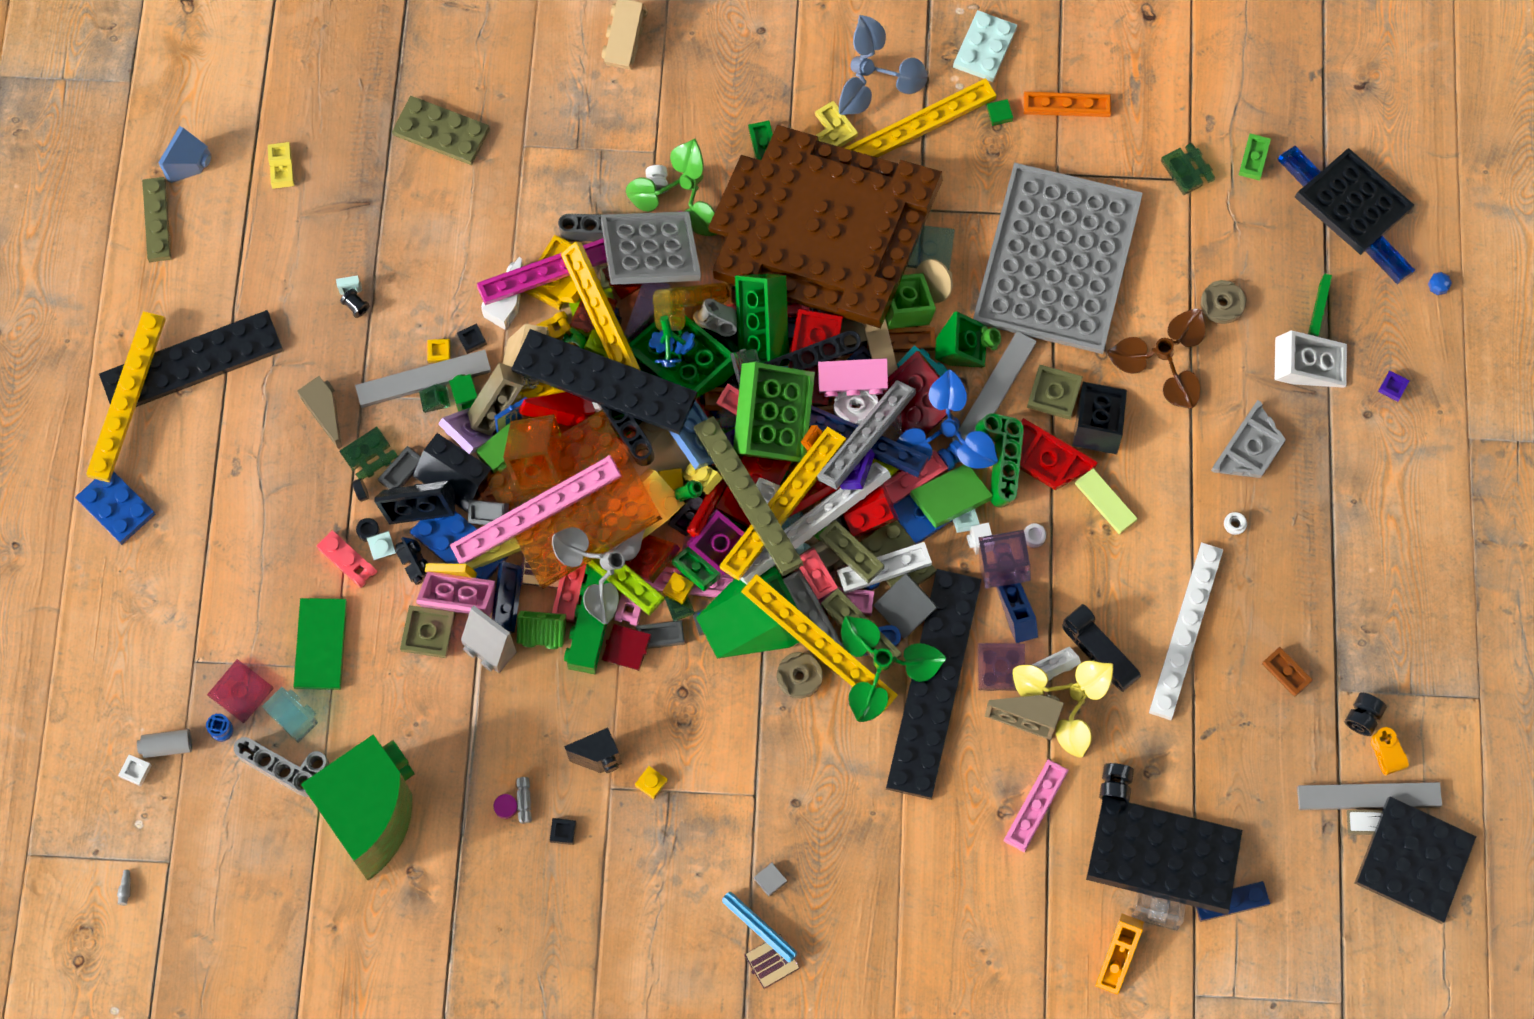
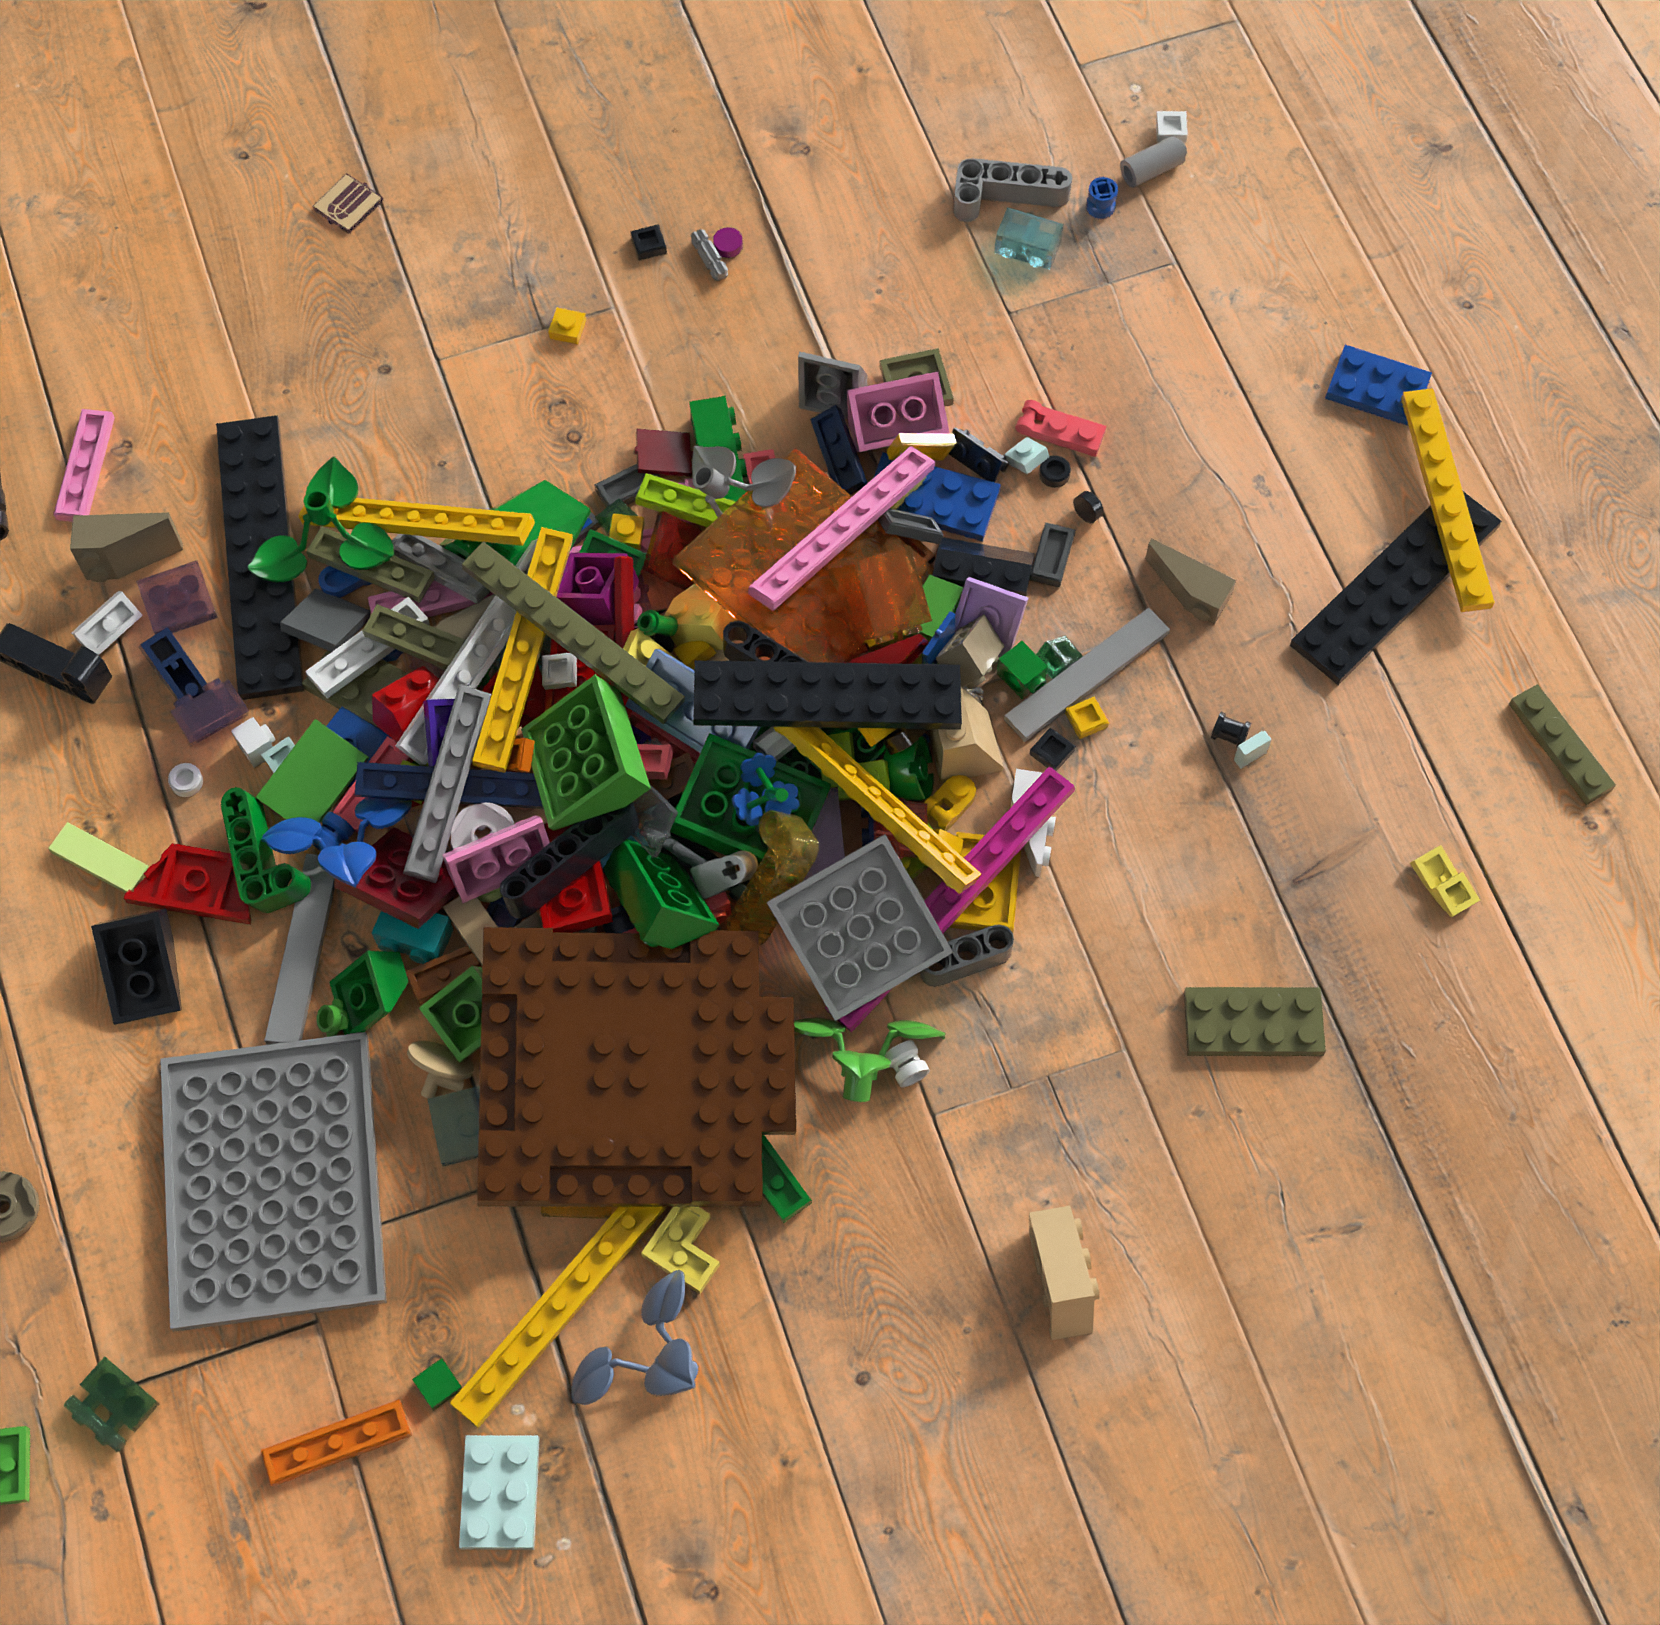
camera: 155 degrees right, 5 degrees down
(124, 889) = (1111, 21): light grey piece -> none
(184, 156) = (1578, 829): medium blue slope -> none
(240, 691) = (1102, 247): clear pink plate -> none
(320, 644) = (1039, 328): green tile -> none
(366, 448) = (1112, 562): clear green plate -> none
(366, 802) = (885, 146): green brick -> none
(417, 502) = (1007, 503): black slope -> none
(541, 629) = (777, 428): bright green brick -> none
(595, 752) = (644, 314): black slope -> none
(759, 927) = (374, 224): dark azure axle -> none
(770, 879) = (381, 277): light grey tile -> none
(803, 664) = (434, 486): dark tan plate -> none
(817, 574) = (452, 600): coral plate -> none
(1054, 392) = (215, 977): olive plate -> none
(1092, 682) = (62, 598): light yellow plant -> none
(1131, 356) = (32, 1053): reddish brown plant -> none

